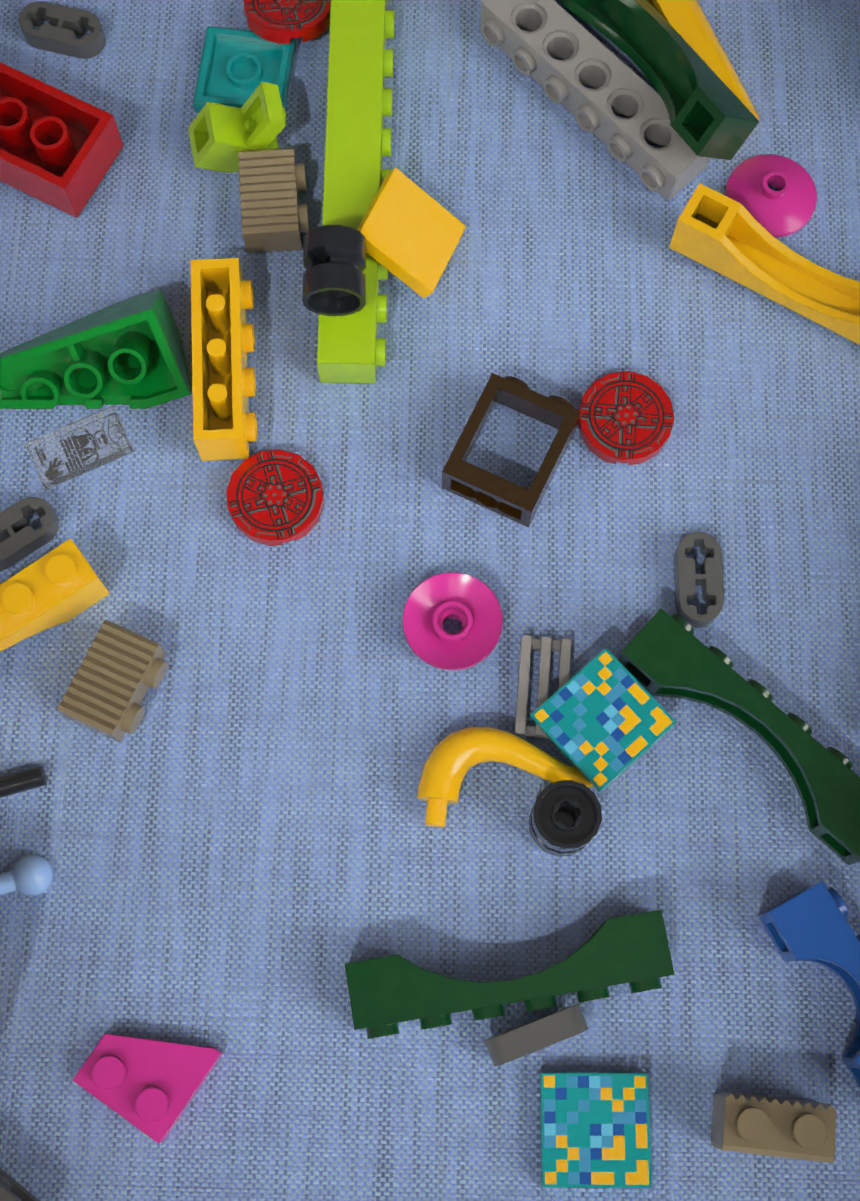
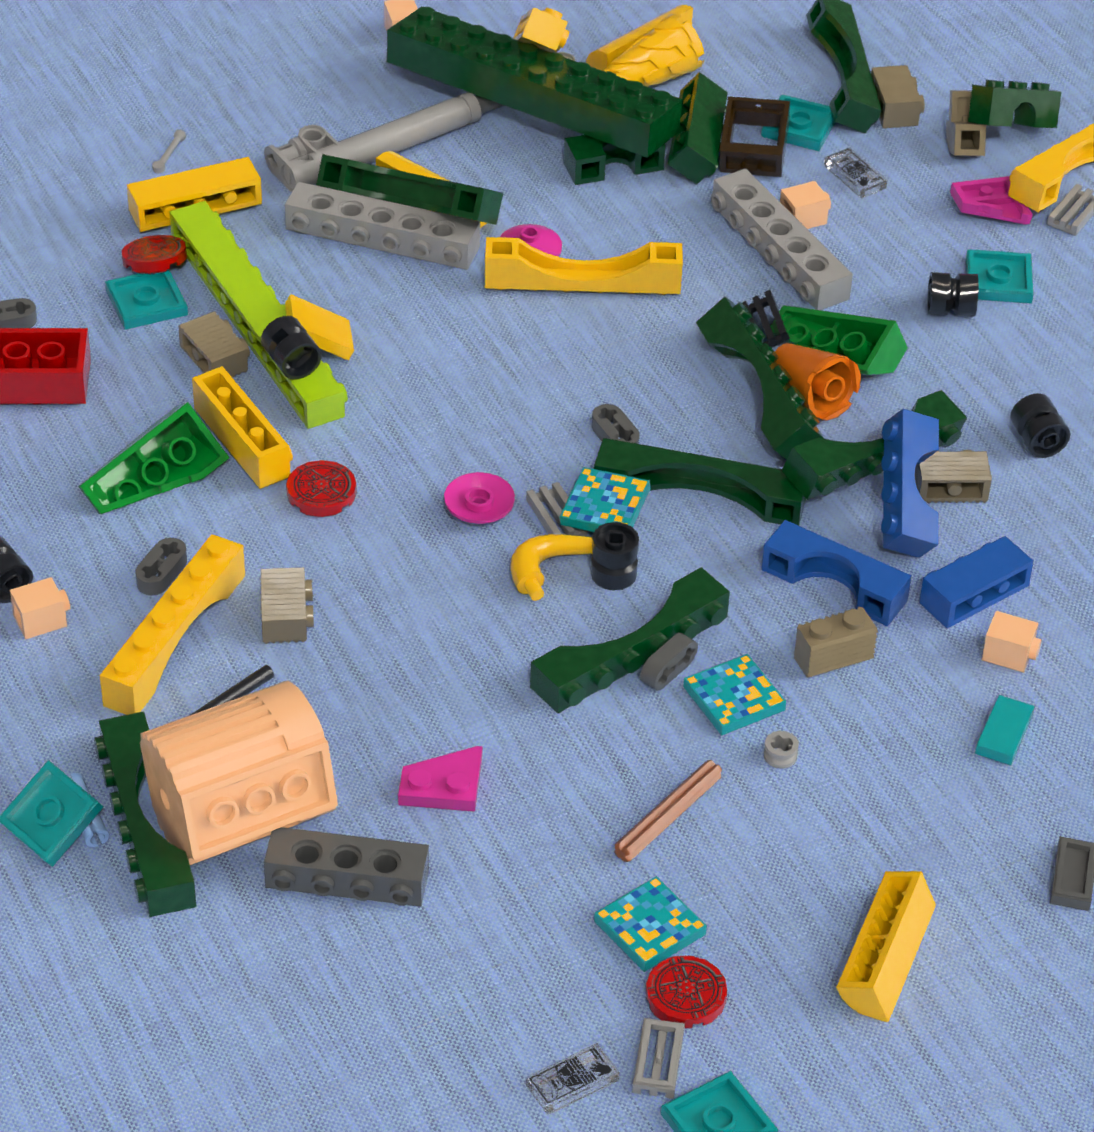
camera: 30 degrees left, 30 degrees down
(79, 447) = (172, 511): clear tile -> none
(224, 130) = (159, 324): lime brick -> none
(489, 489) = (440, 430): dark brown window -> none
(625, 418) = (516, 374): red tile -> none

